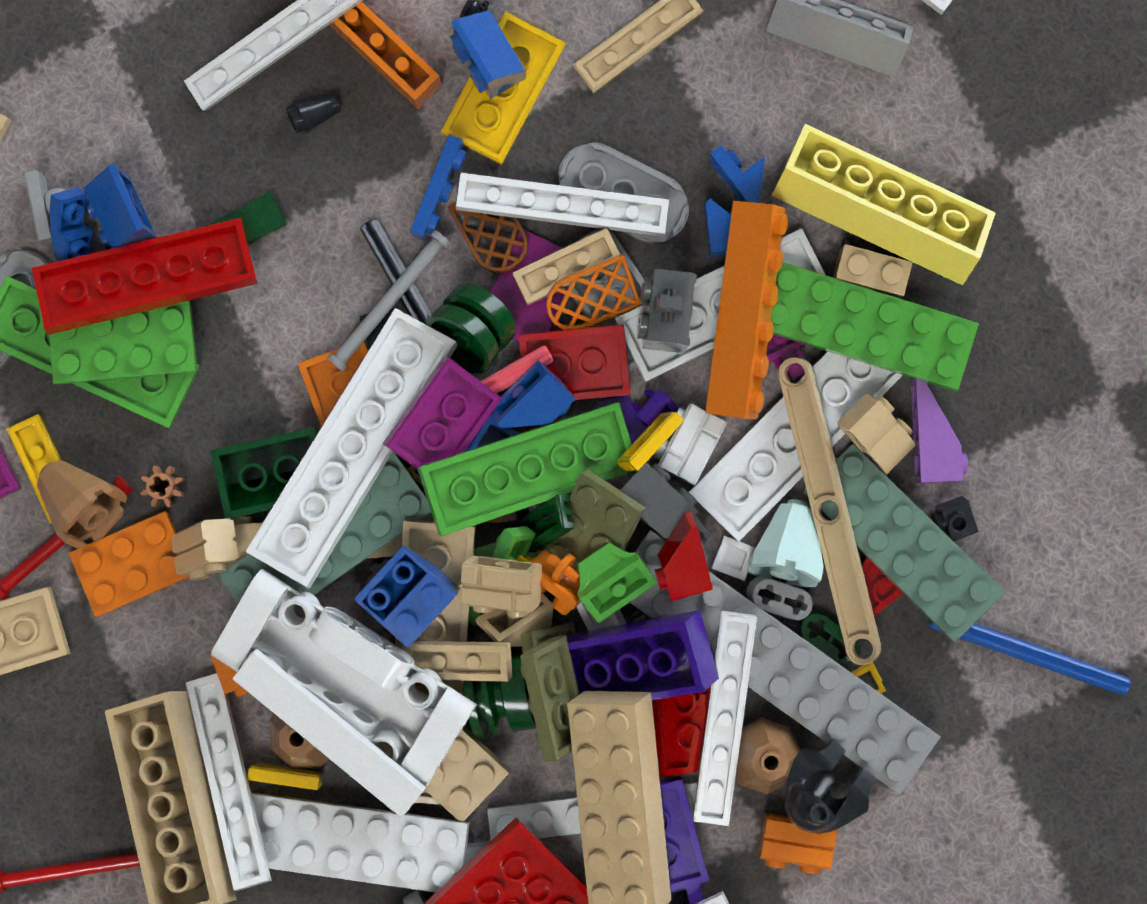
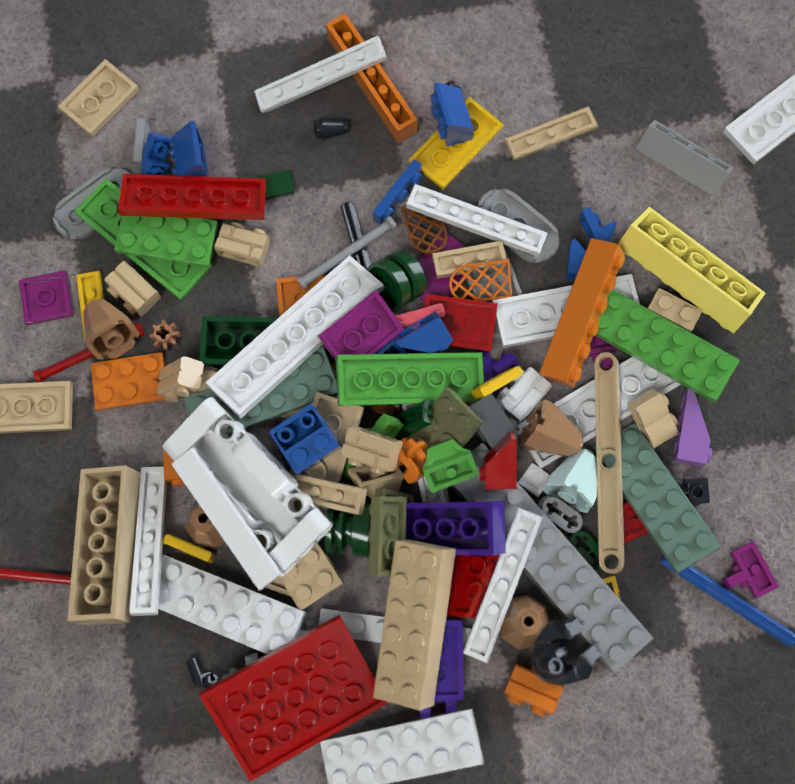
camera: 25 degrees right, 10 degrees down
(95, 431) = (132, 288): none -> tan brick
(233, 323) = (242, 244): none -> tan brick
(668, 310) = (529, 298): dark grey hinge -> none
(739, 492) = (550, 432): none -> medium nougat cone
(1052, 609) = (750, 571): none -> magenta hinge

